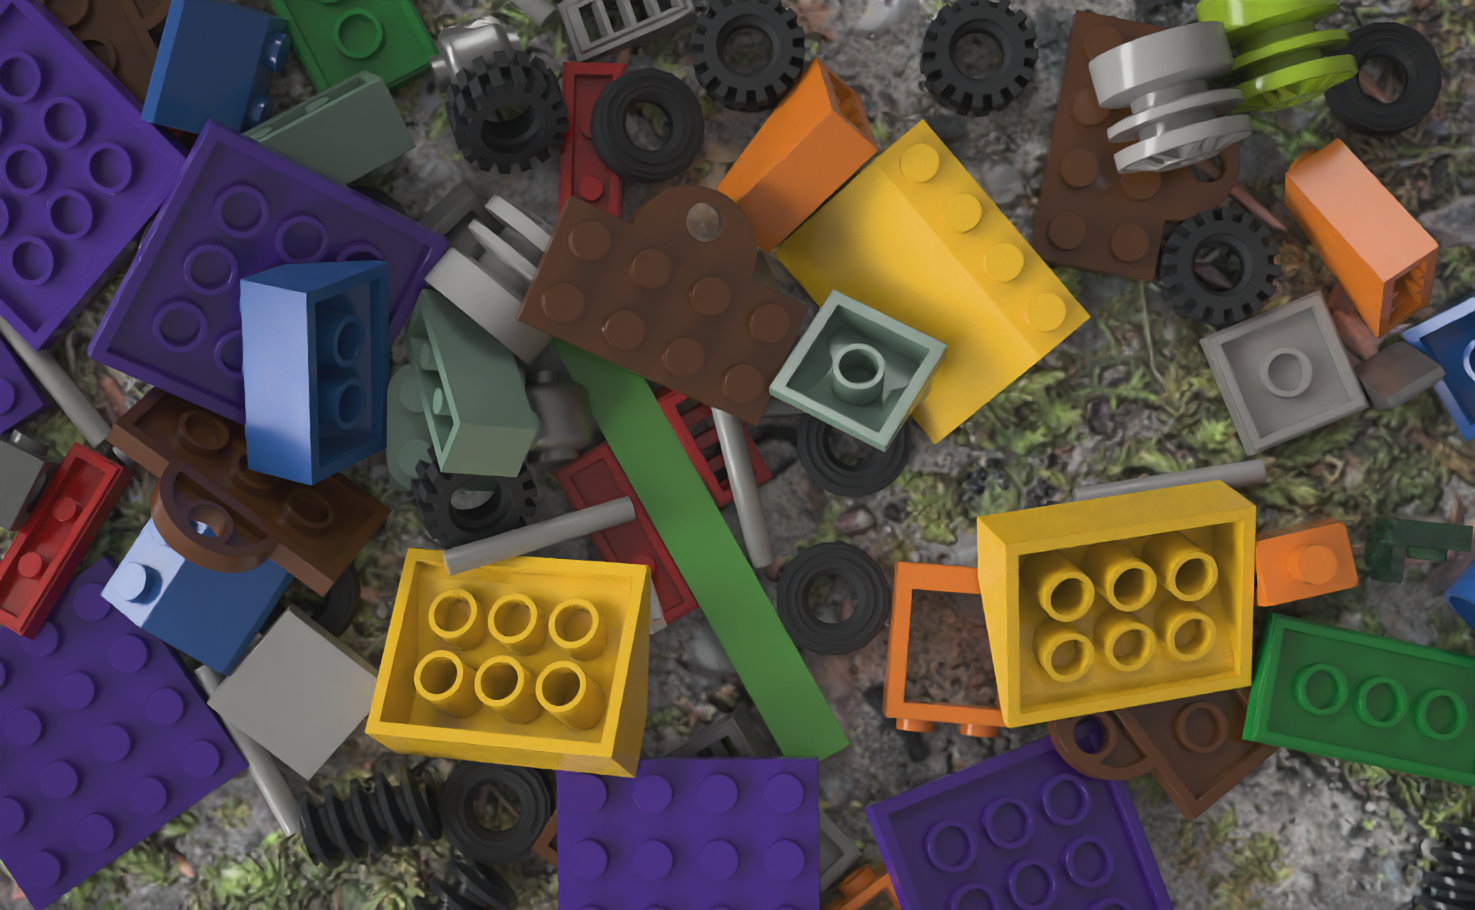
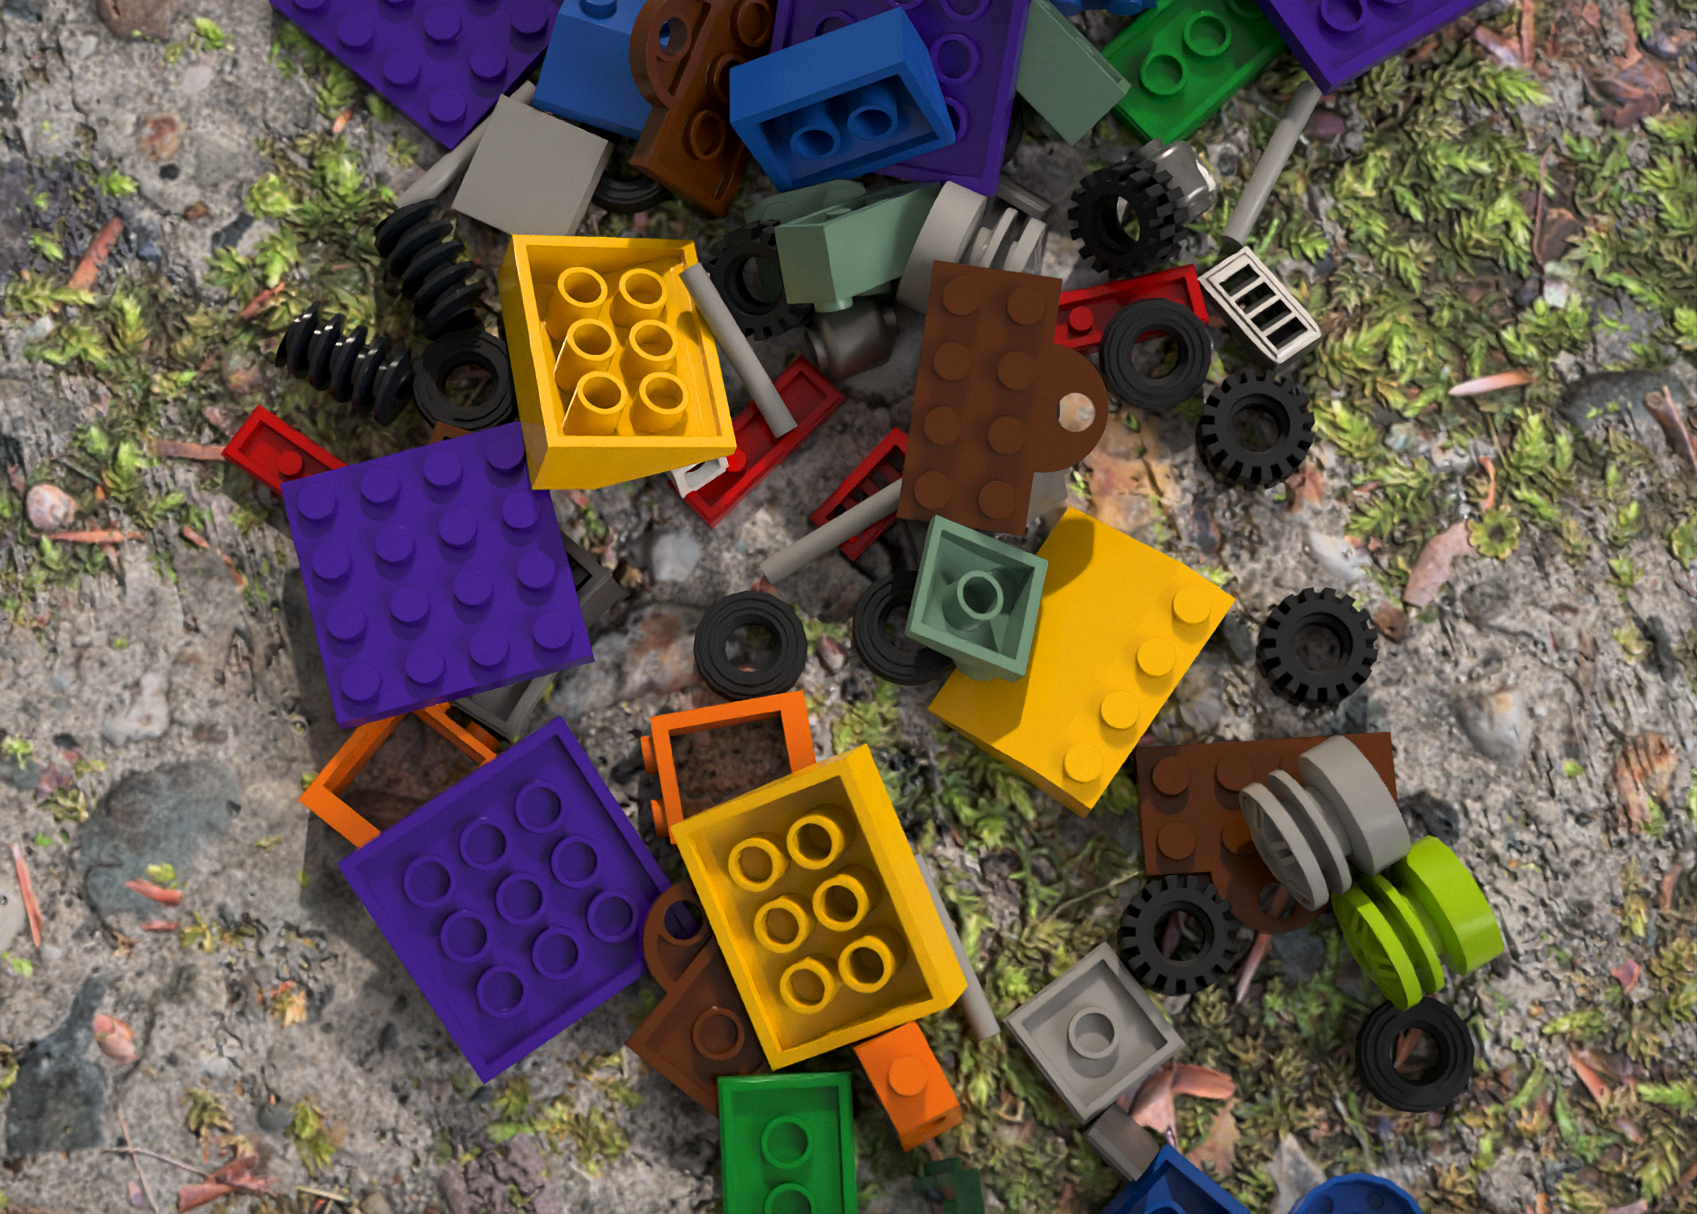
camera: 65 degrees right, 10 degrees down
(707, 556) = (753, 524): bright green tile -> none
(800, 155) = (1167, 497): orange slope -> none
(1362, 235) = (1248, 1067): orange slope -> none

